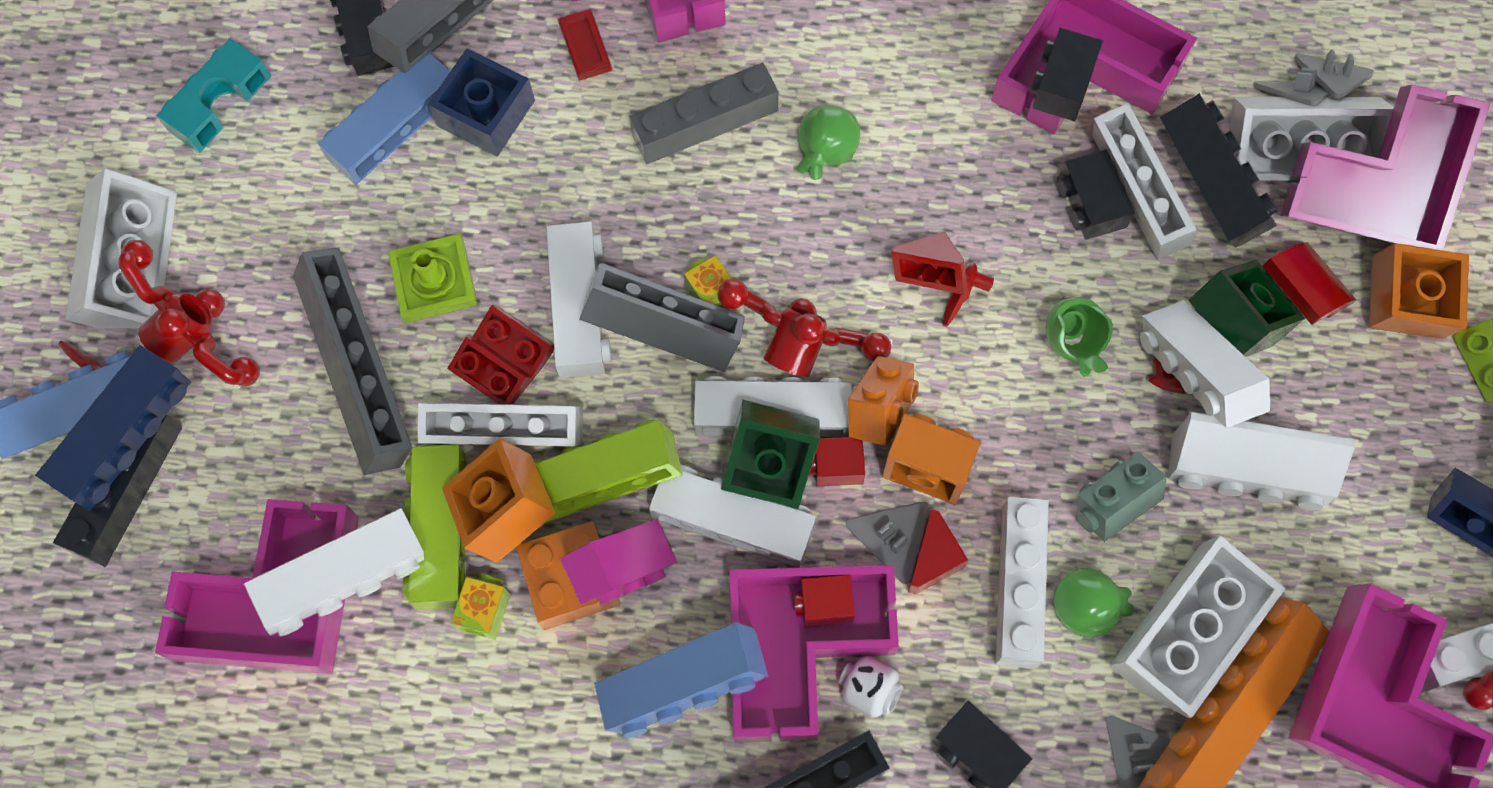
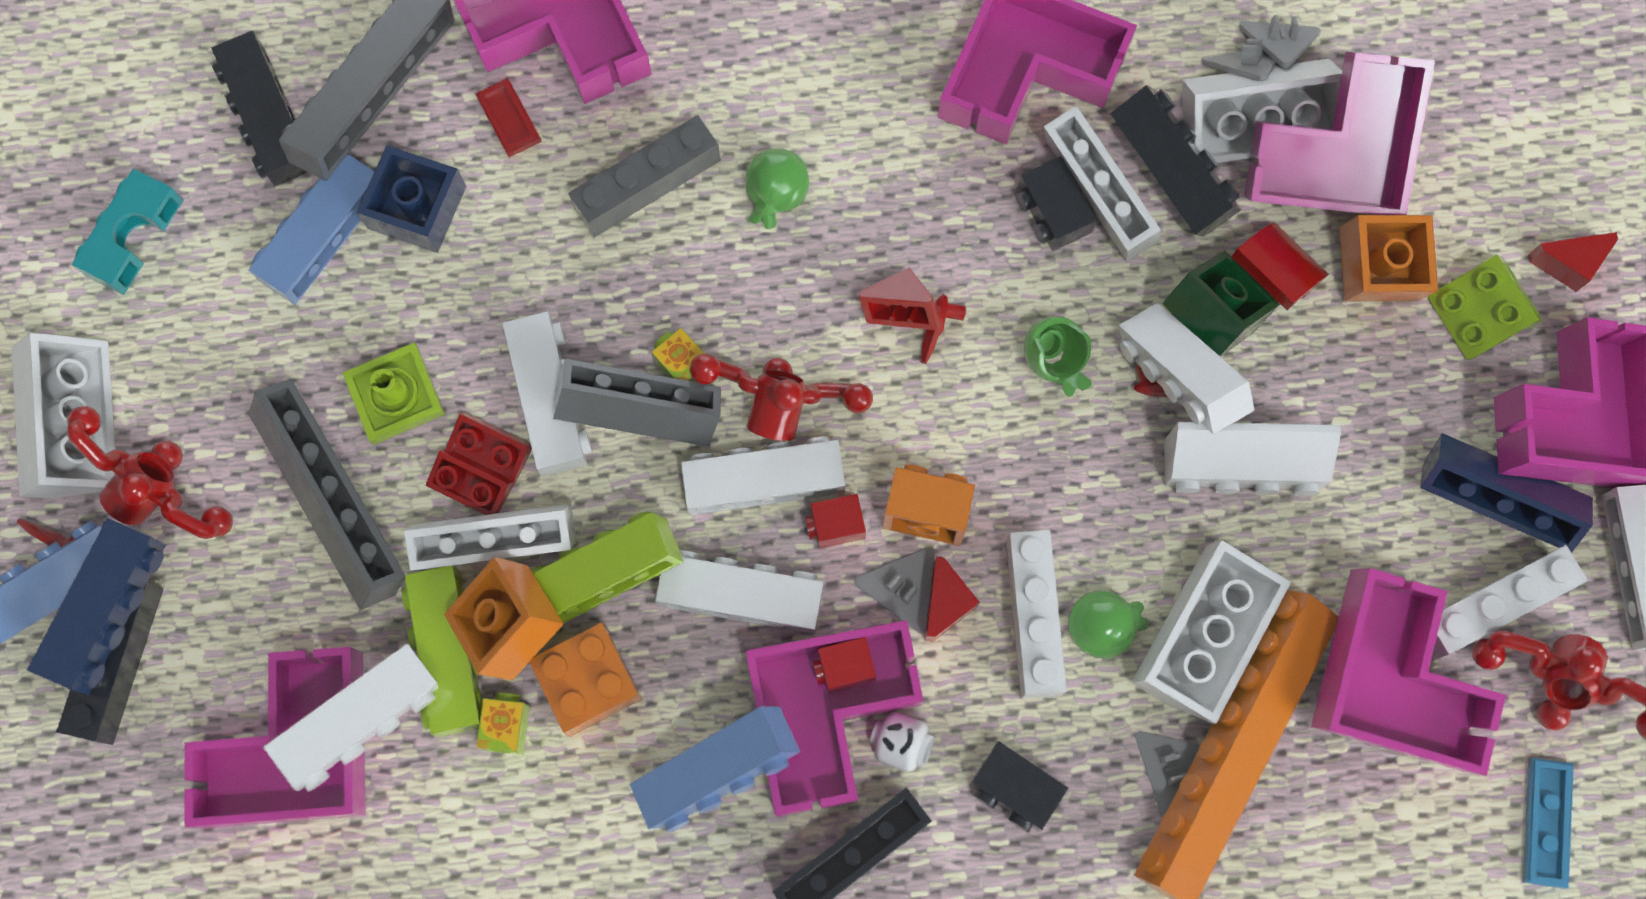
camera: 10 degrees left, 5 degrees up
(619, 563) = (636, 663): dark pink brick -> none
(770, 454) = (768, 527): dark green brick -> none
(881, 400) = (871, 453): orange brick -> none
(1067, 73) = (1010, 85): black brick -> none
(1120, 496) = (1120, 513): sand green brick -> none

